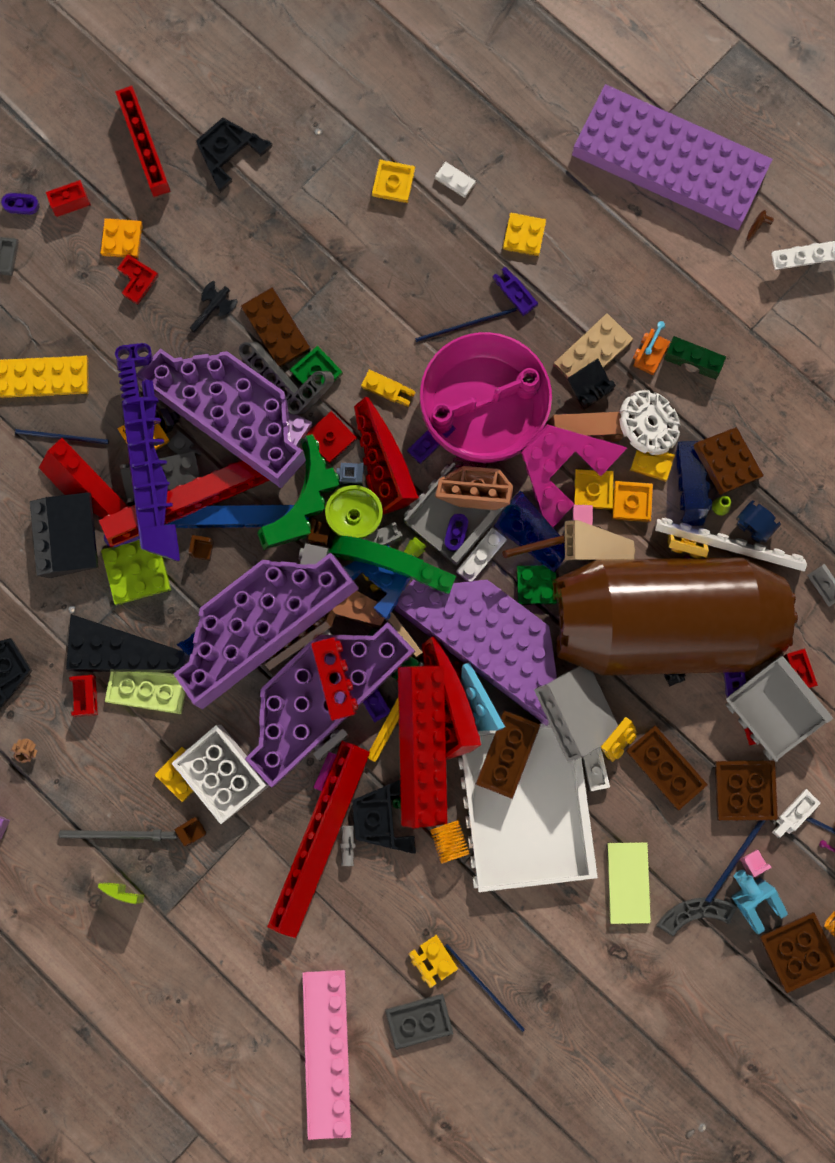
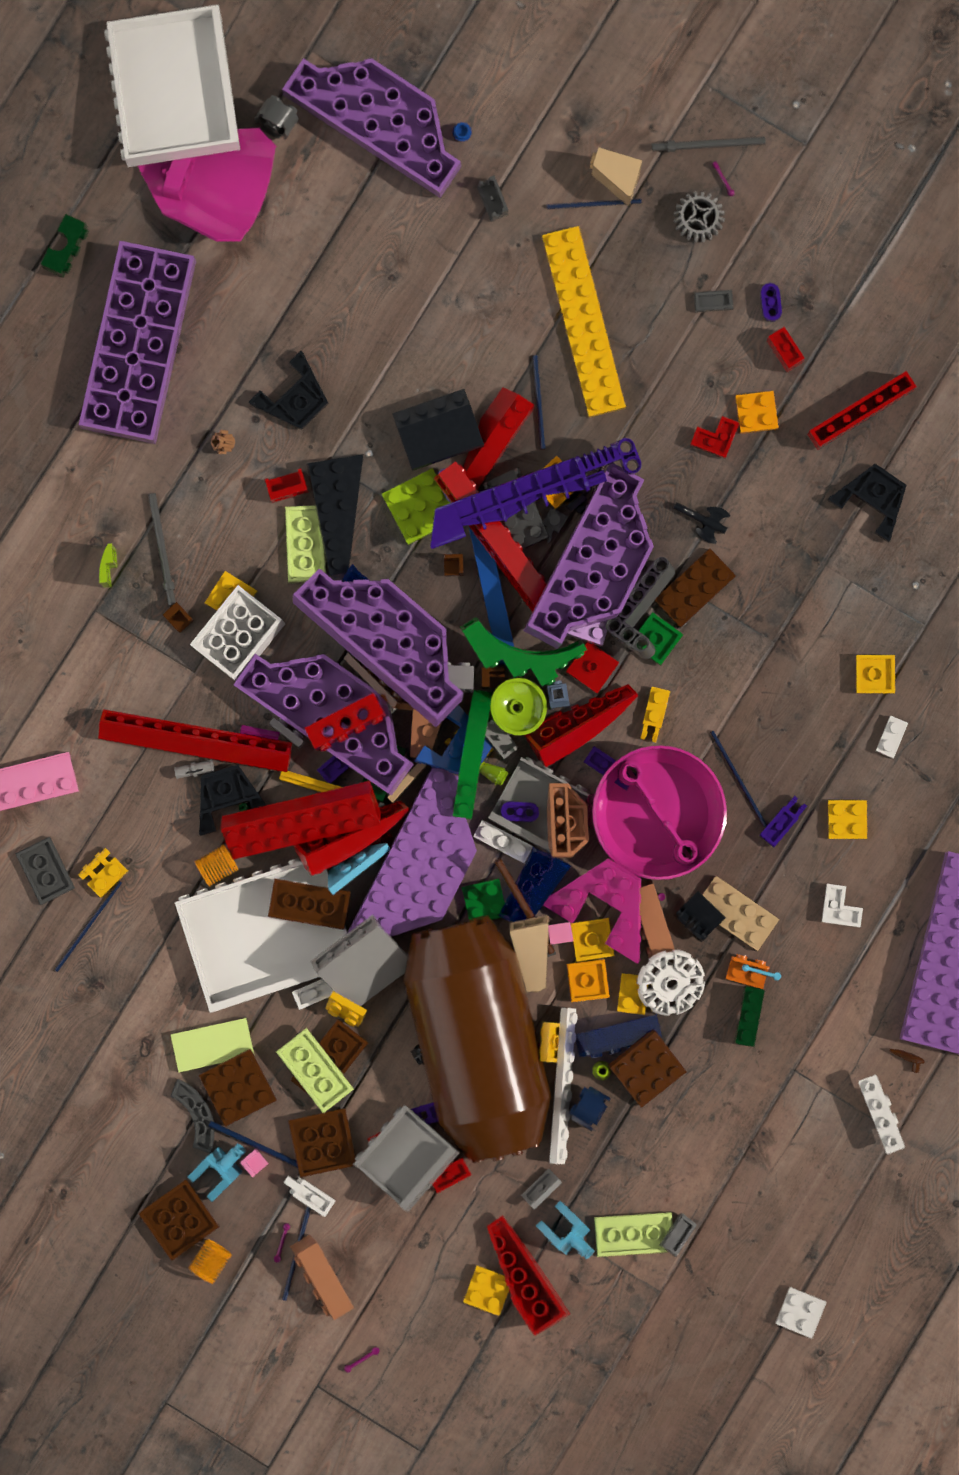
camera: 80 degrees right, 5 degrees up
(608, 261) = (835, 911): none -> white plate
(674, 783) = (314, 1070): none -> yellowish green tile
(676, 865) = (237, 1087): none -> reddish brown plate

